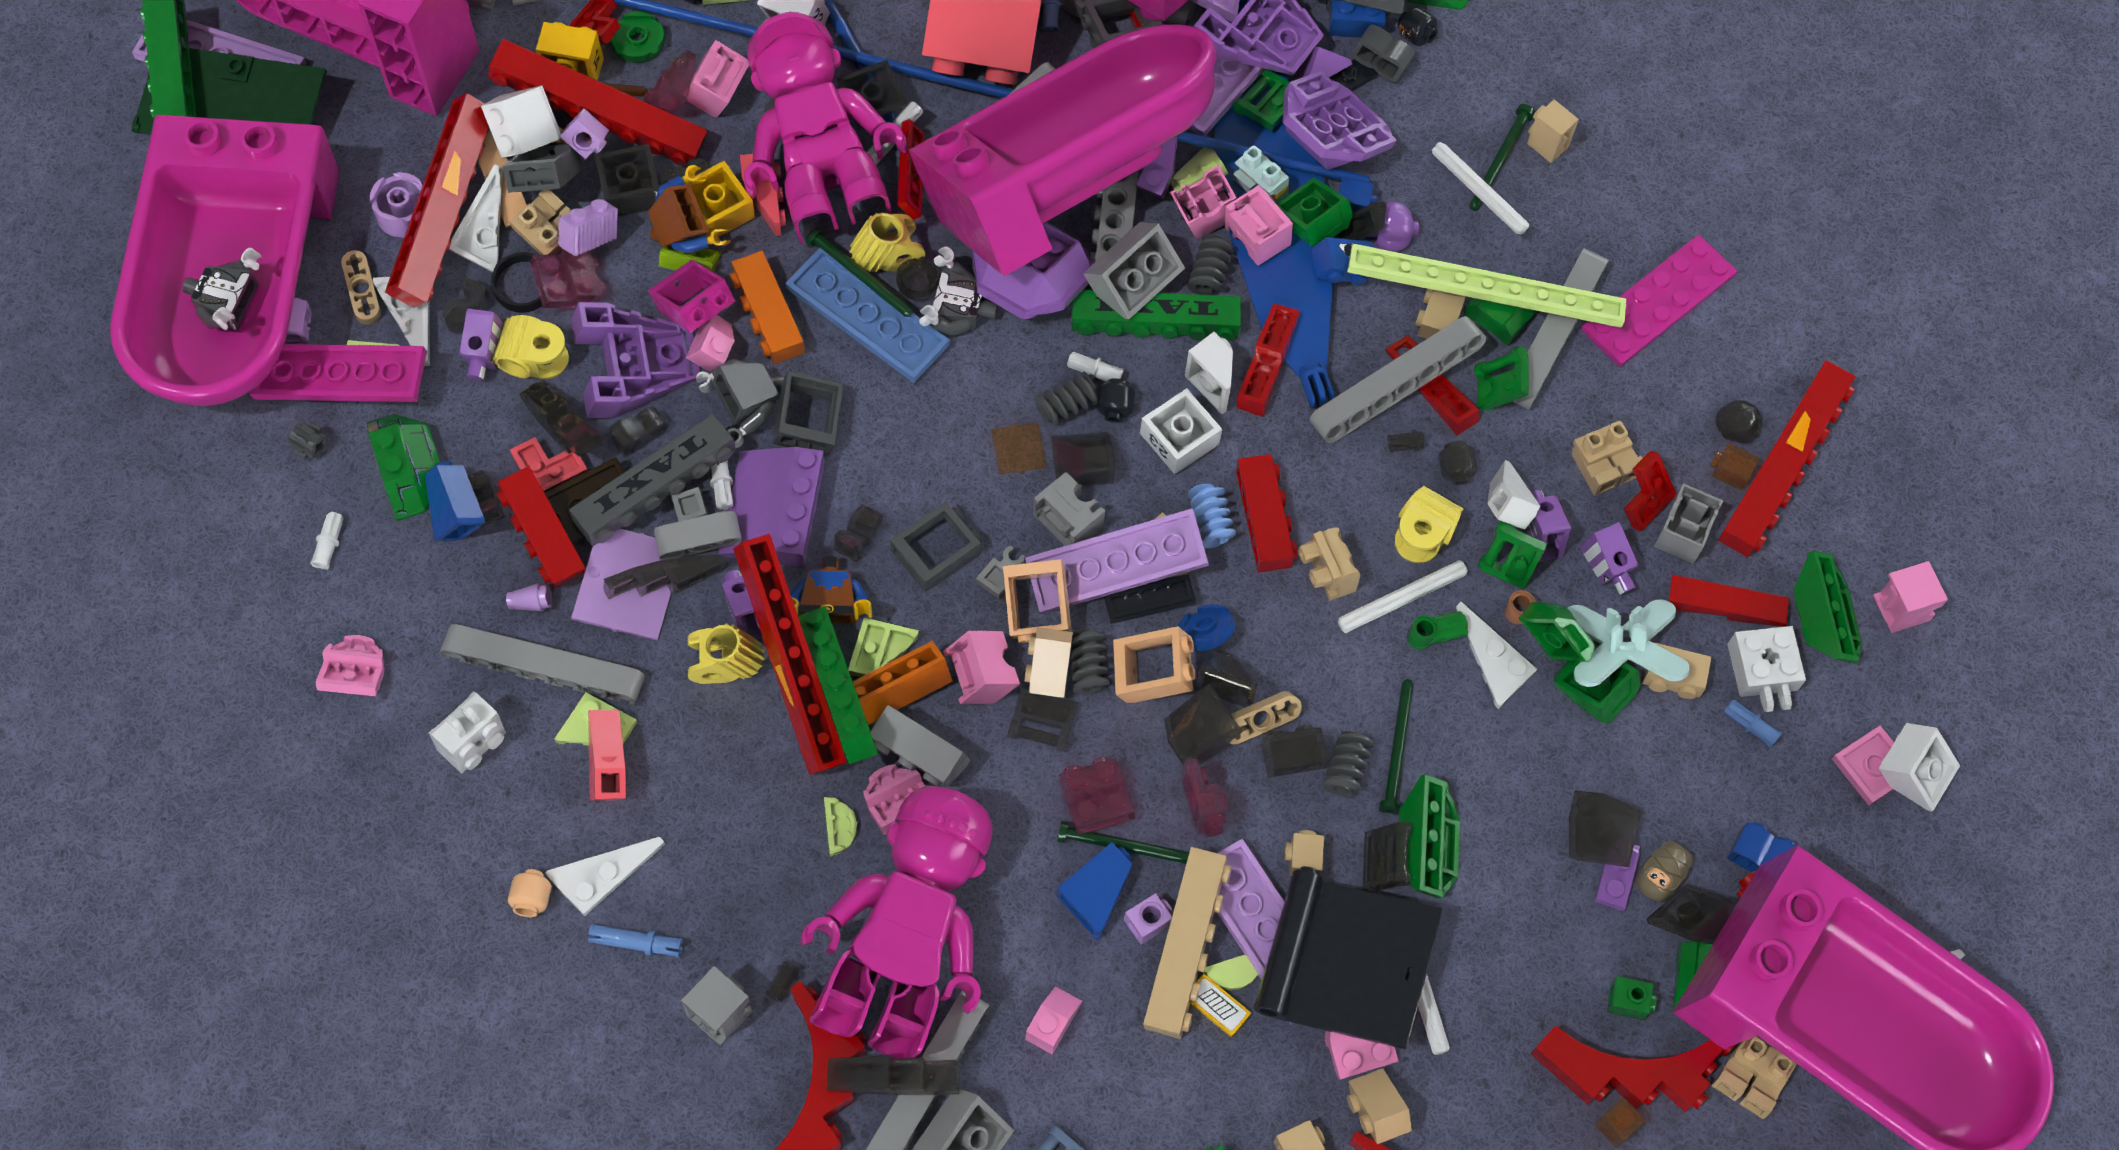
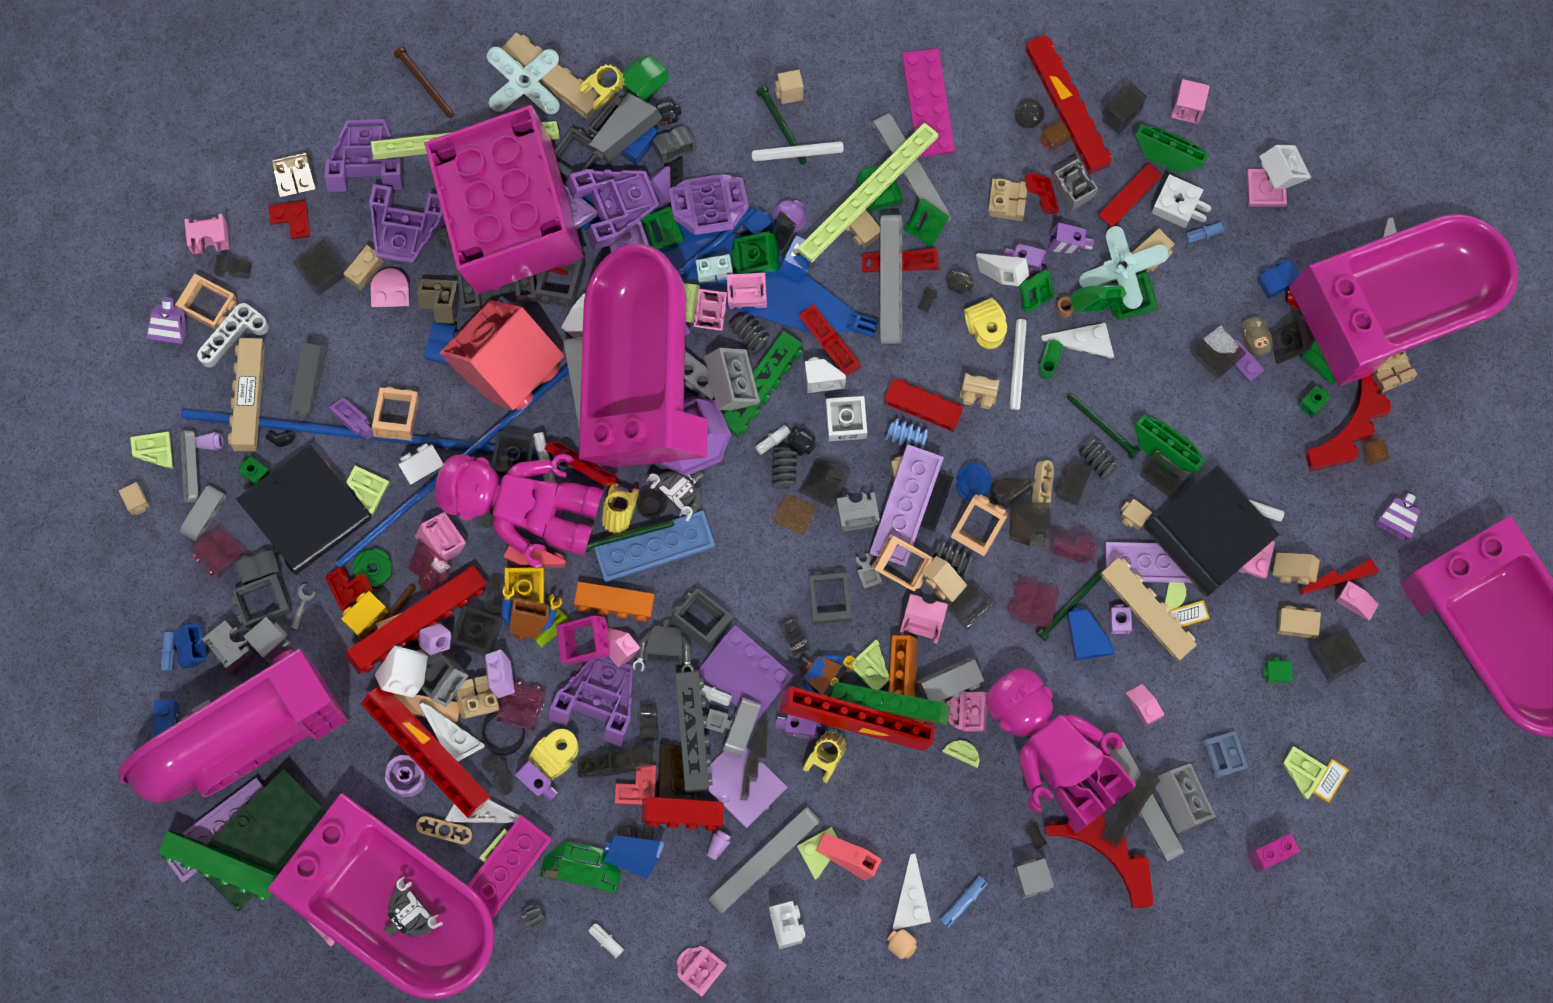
camera: 55 degrees left, 10 degrees up
(1835, 522) = (1123, 108): none -> clear smoke brick

